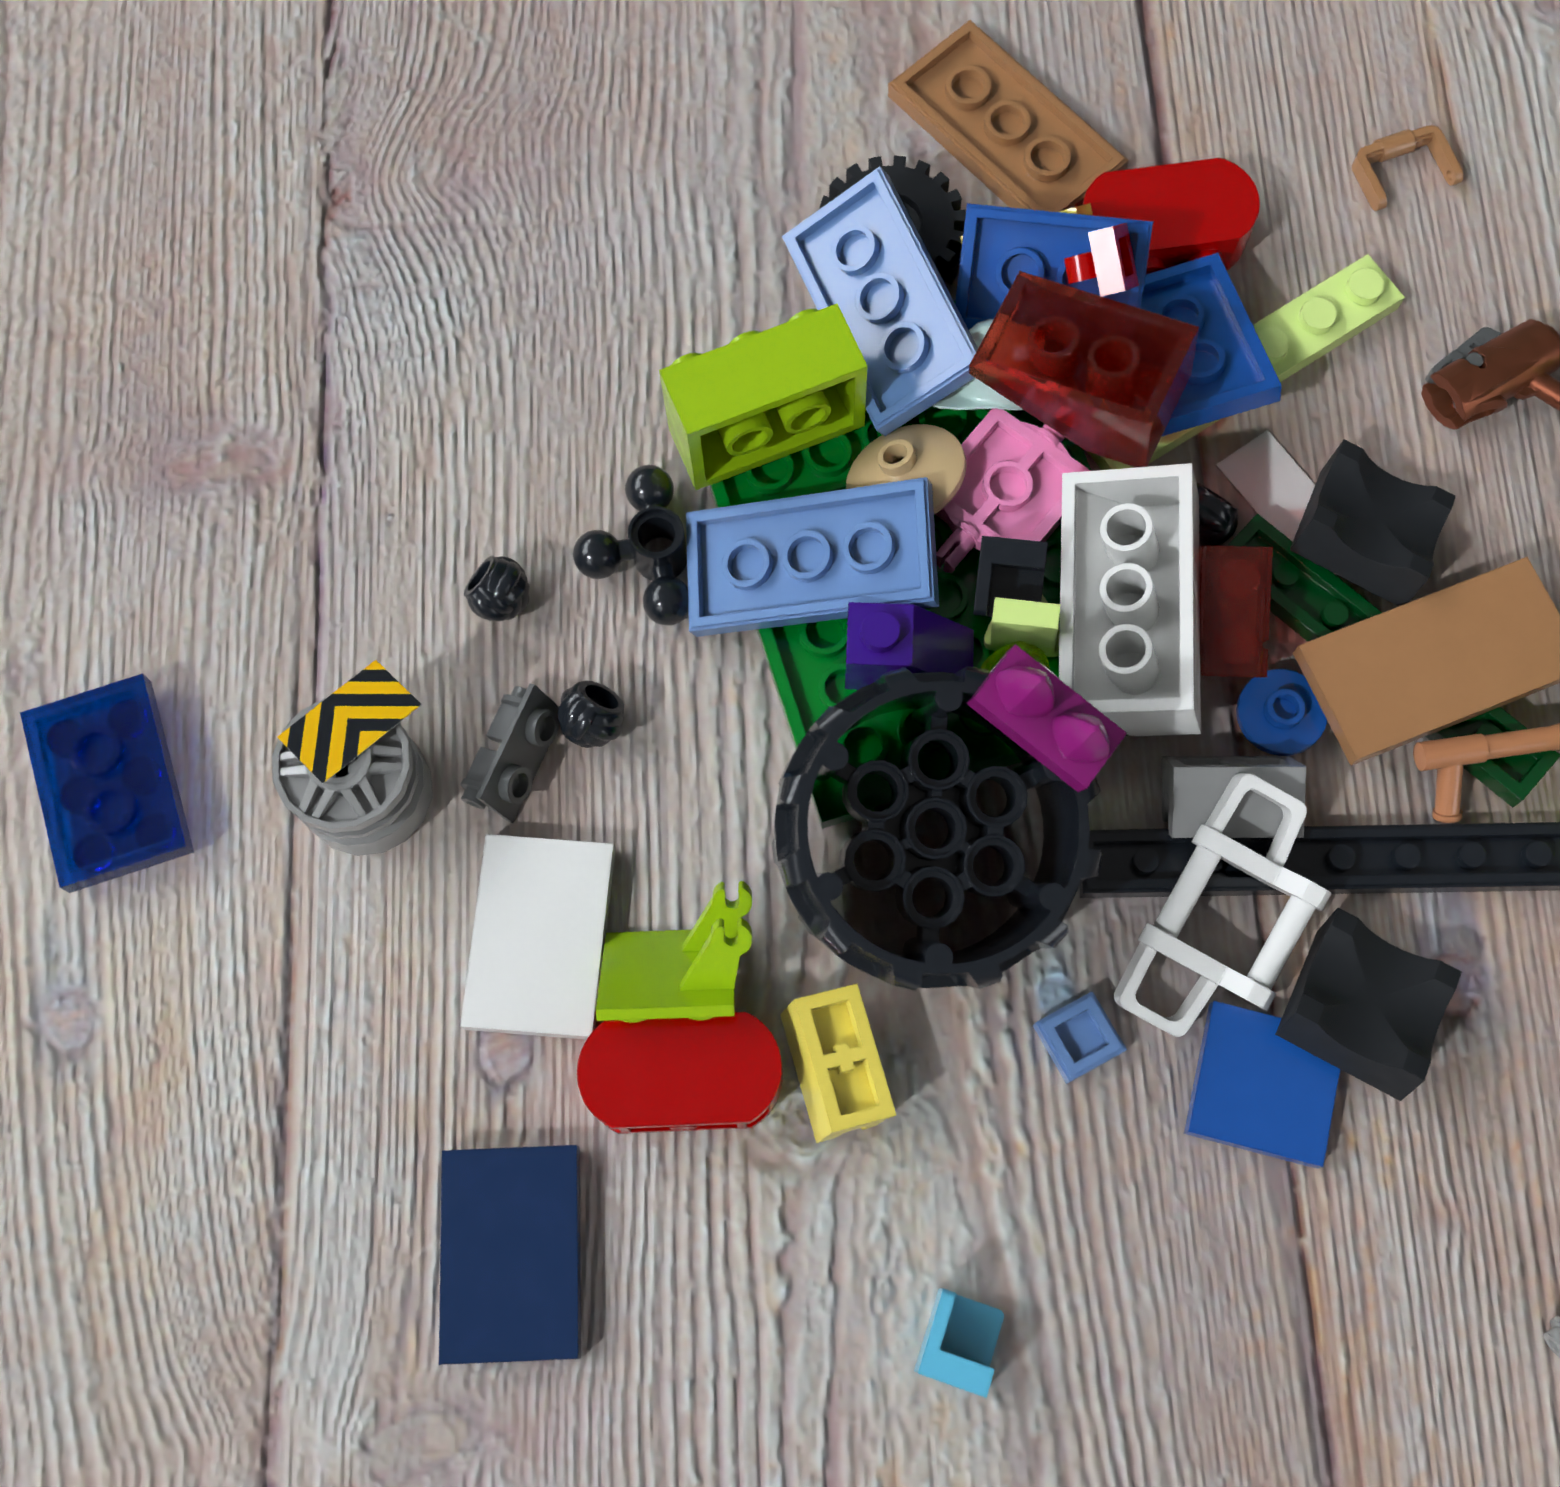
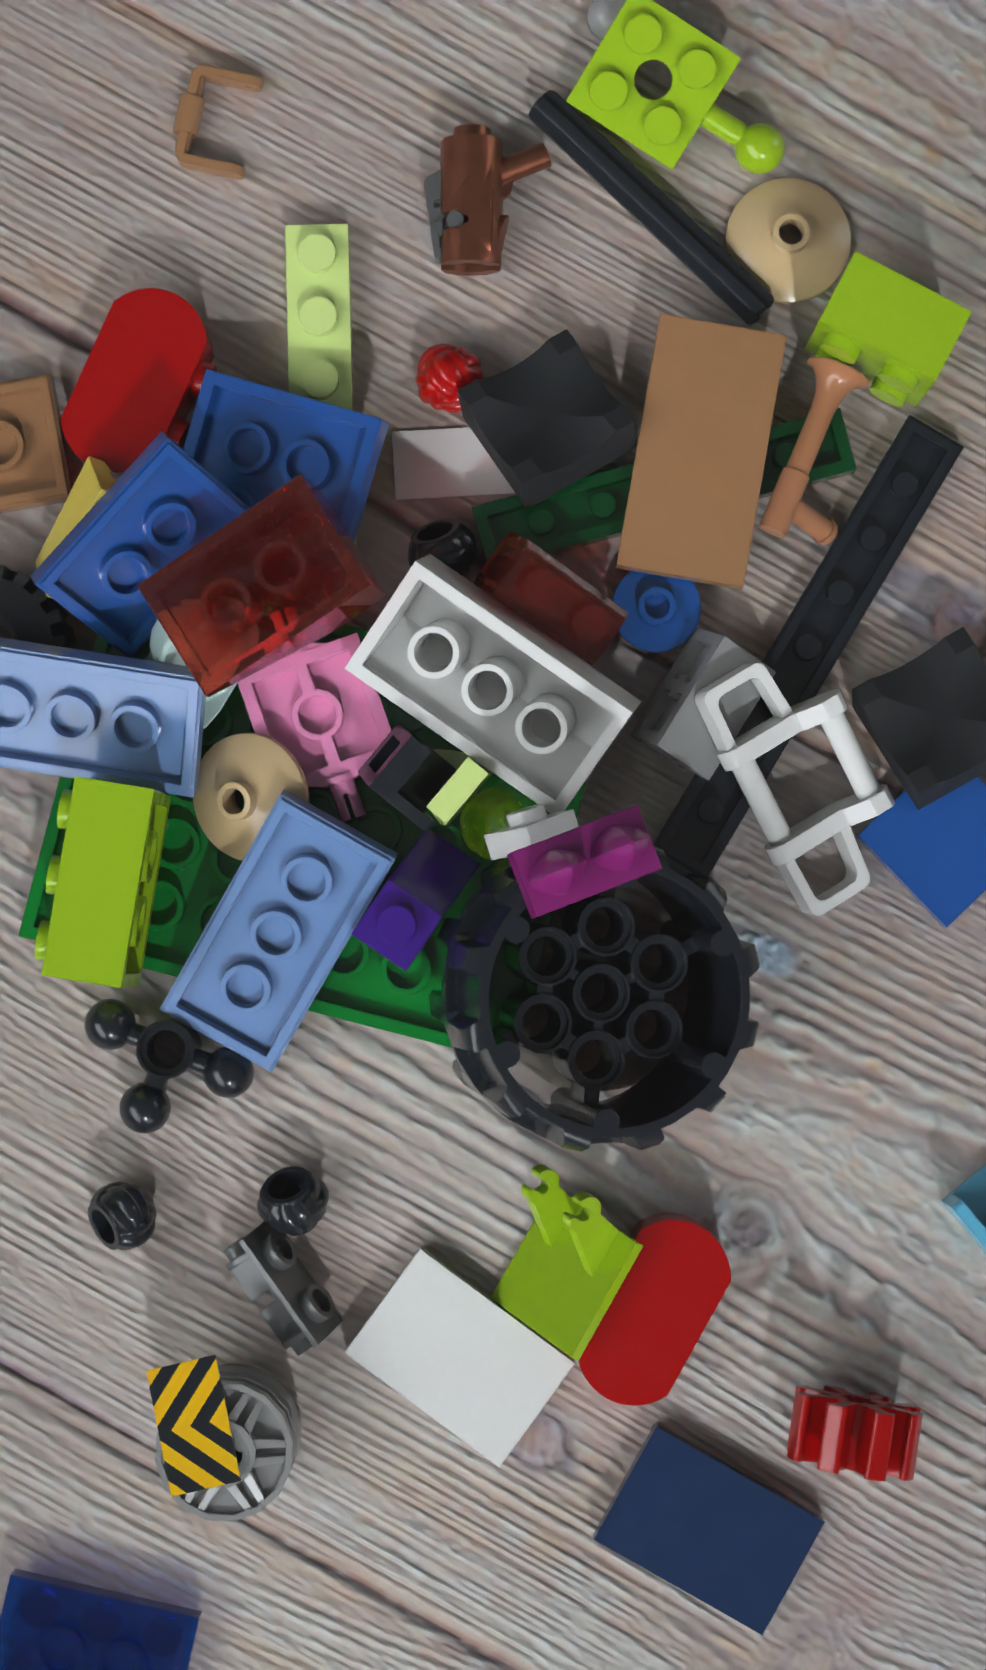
camera: 55 degrees left, 15 degrees up
(678, 1327) = (854, 1433): none -> red gear
(837, 1062) = (723, 1176): light yellow hinge -> none
(1079, 1037) = (818, 961): medium blue tile -> none
(1108, 260) = (180, 505): tile -> none
(1341, 425) = (443, 372): none -> red piece

